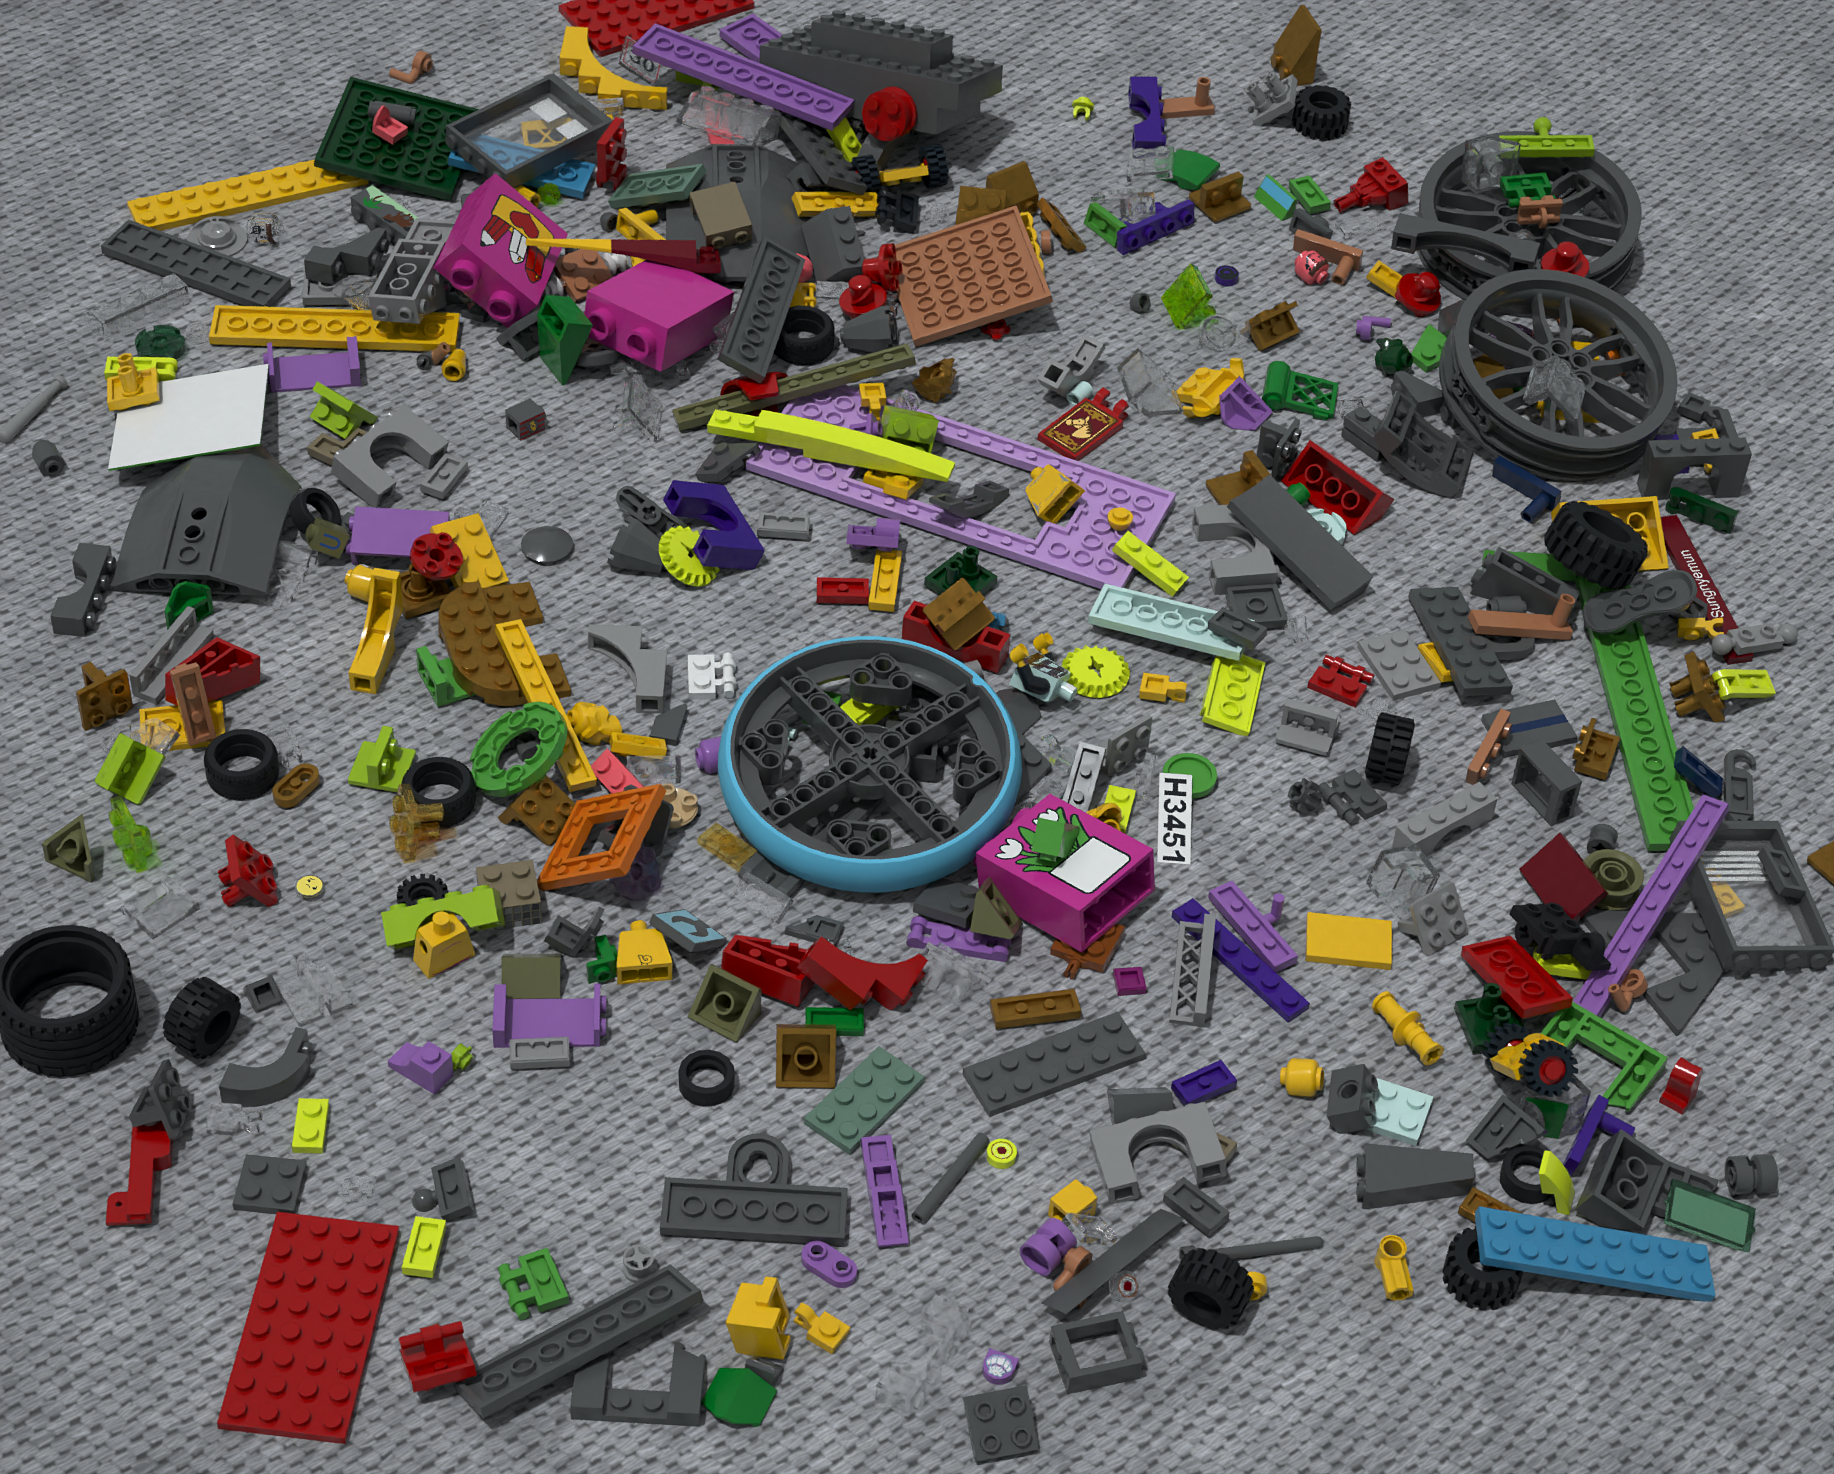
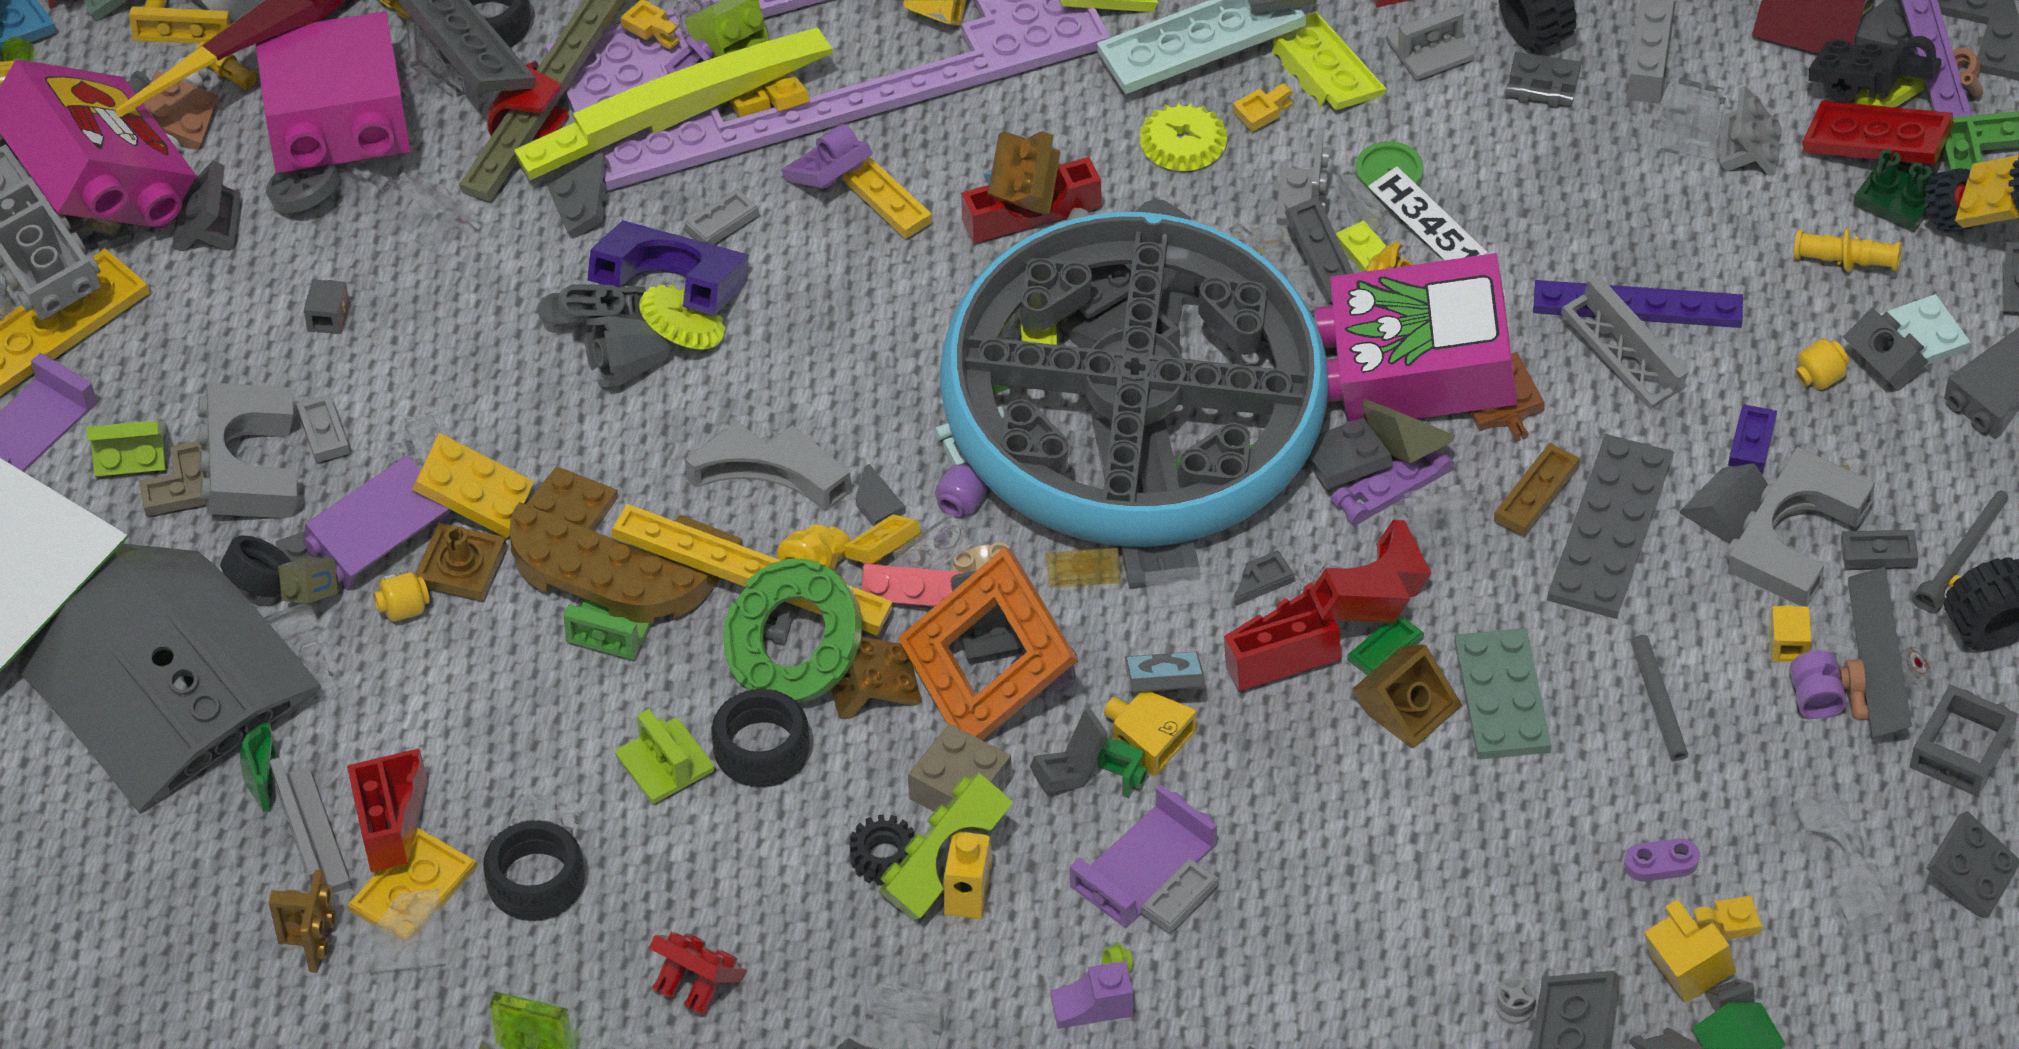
camera: 40 degrees left, 5 degrees up
(76, 611) = (95, 806): dark grey arch -> none
(130, 769) = (432, 966): lime bracket -> none
(192, 703) = (431, 844): nougat plate -> none
(292, 788) = (611, 848): pearl gold plate -> none
(309, 888) = (759, 931): tile -> none
(377, 638) = (497, 634): yellow arch -> none
(407, 822) = (784, 786): clear yellow plate -> none
(432, 357) = (134, 319): arm -> none
(436, 556) = (461, 508): red plate -> none
(455, 365) = (173, 306): yellow cone -> none
(532, 976) = (1074, 829): olive slope -> none
(547, 544) = (518, 416): dark grey dish -> none
(561, 334) = (271, 189): green slope -> none
(608, 220) = (120, 36): dark grey hinge -> none
(702, 676) = (845, 428): white plate -> none
(711, 1095) = (1352, 813): black tyre -> none
(726, 1003) = (1283, 708): olive slope -> none
(752, 1209) = (1543, 869): dark grey plate -> none
(842, 590) = (862, 238): red plate -> none
(884, 1191) = (1621, 755): medium lavender slope -> none
(959, 567) = (955, 140): dark green plate -> none
(985, 497) = (869, 52): dark grey slope -> none
(999, 1367) = (1902, 822): tile -> none
(1001, 1153) = (1671, 640): neon yellow tile -> none
(1039, 672) = (1155, 177): torso -> none
(1053, 839) = (1408, 311): bright green slope -> none
(1129, 981) = (1576, 399): magenta tile -> none
(1254, 926) = (1614, 262): medium lavender plate -> none
(1304, 796) = (1501, 109): dark grey gear -> none
(1348, 941) = (1700, 213): yellow tile -> none

